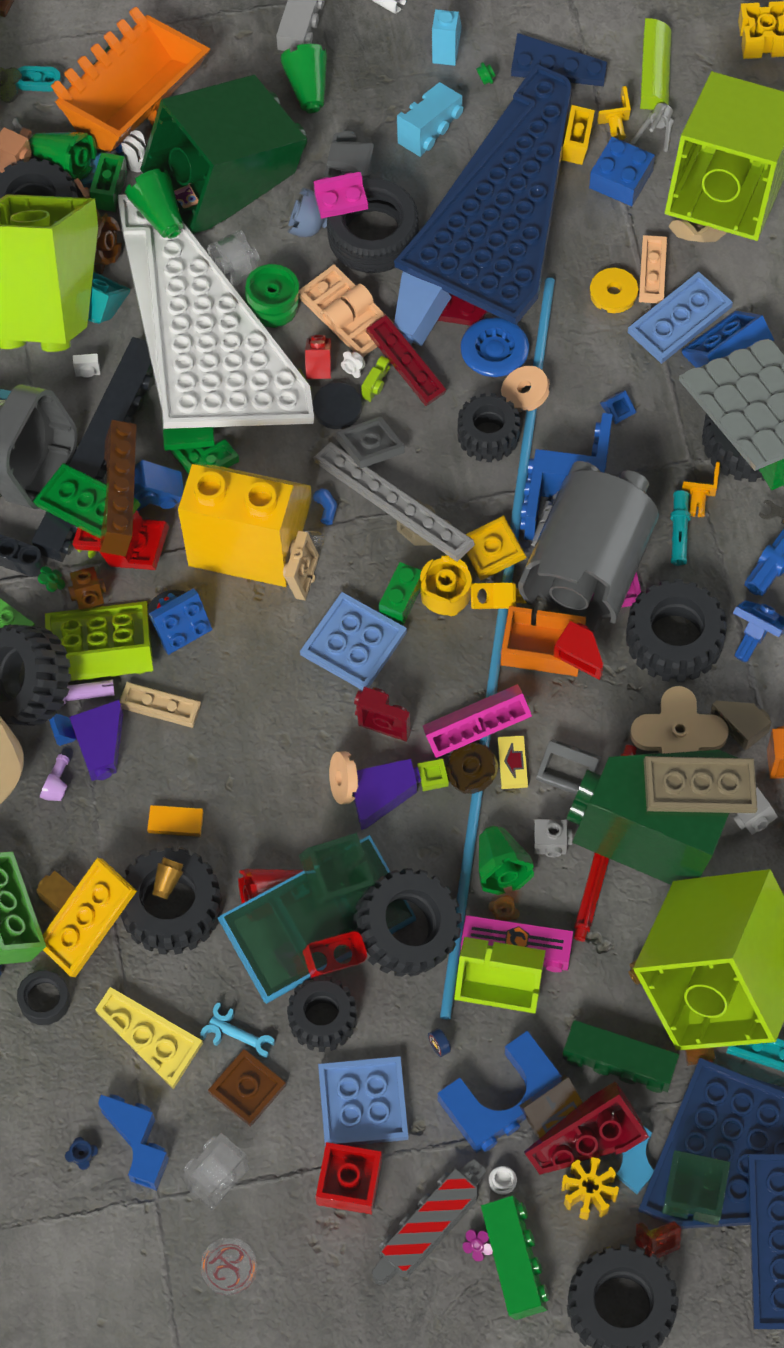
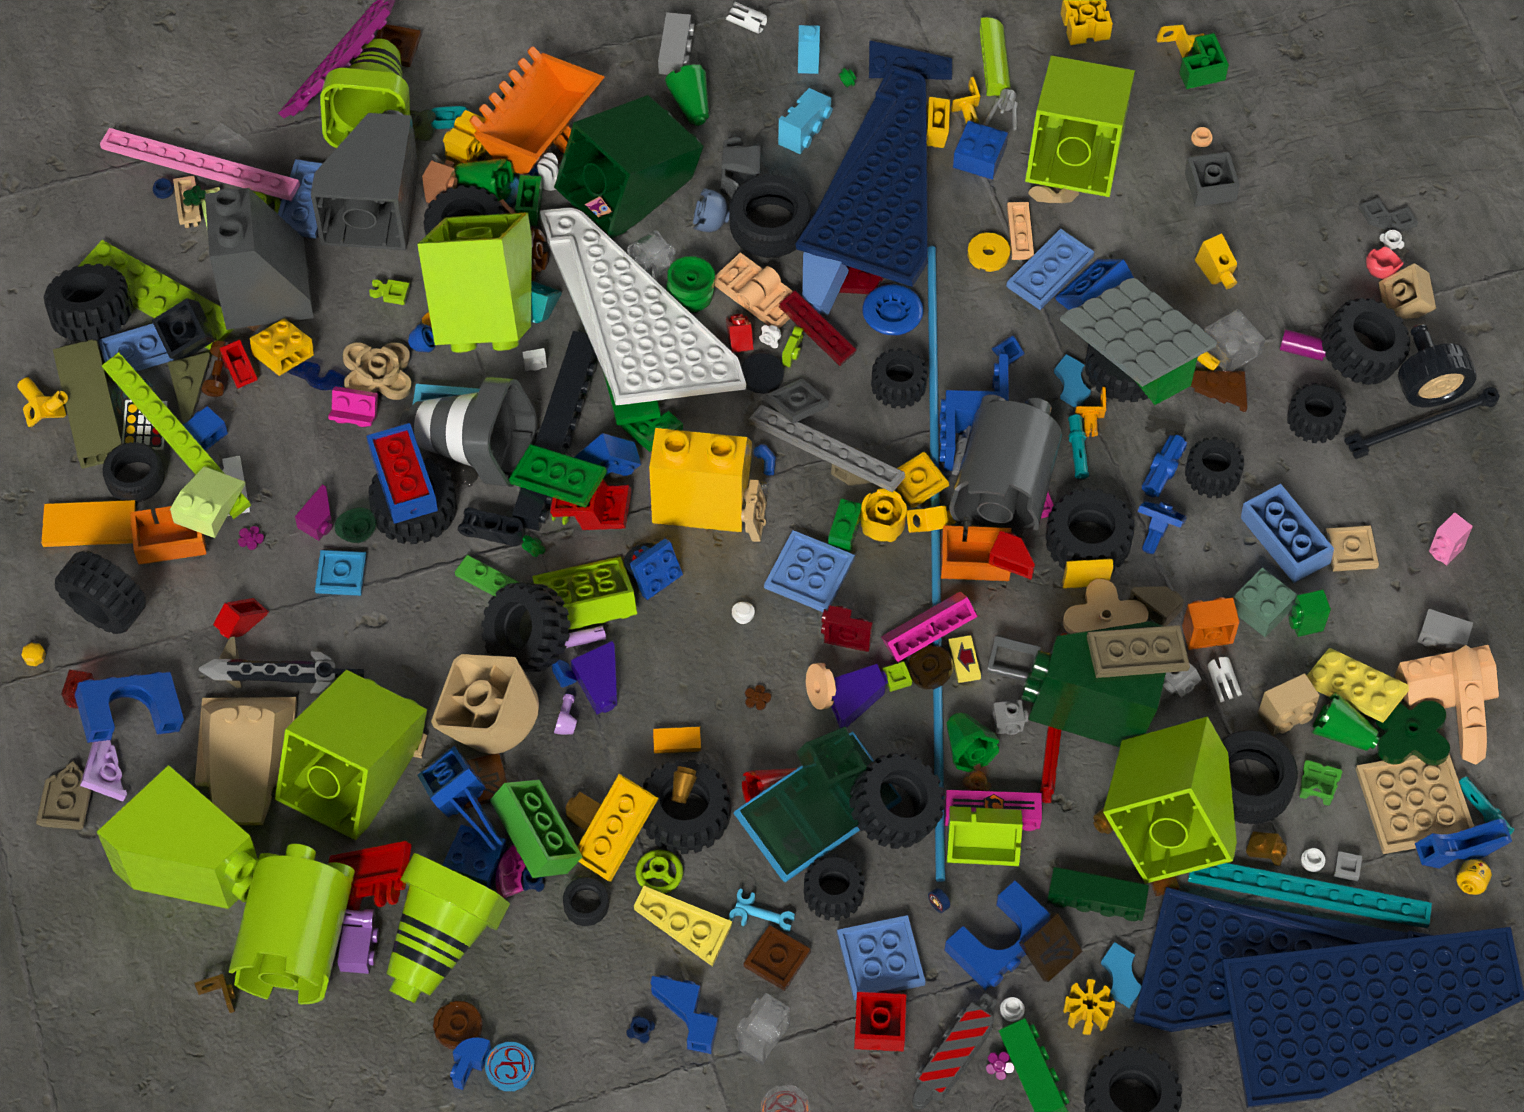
camera: 10 degrees left, 5 degrees down
(42, 111) = (460, 142): none -> yellow brick
(86, 588) = (567, 549): reddish brown brick -> none
(118, 510) = (592, 486): reddish brown arch -> none
(125, 964) = (659, 862): none -> lime piece
(157, 202) = (577, 213): green cone -> none
(160, 704) = (647, 643): tan tile -> none
(272, 680) = (743, 612): none -> white plate
(273, 781) = (757, 697): none -> reddish brown plant
(340, 195) = (740, 191): dark pink bracket -> none
(355, 943) = (855, 824): red piece -> none
(524, 377) = (923, 332): light nougat tile -> none
(594, 1129) = (1086, 955): dark red wedge -> none
(659, 1240) = (1159, 1040): clear red bracket -> none
(662, 677) = (1083, 572): none -> yellow tile
(684, 440) = (1074, 390): none -> dark azure tile
(696, 1187) = (1181, 992): clear green piece -> none

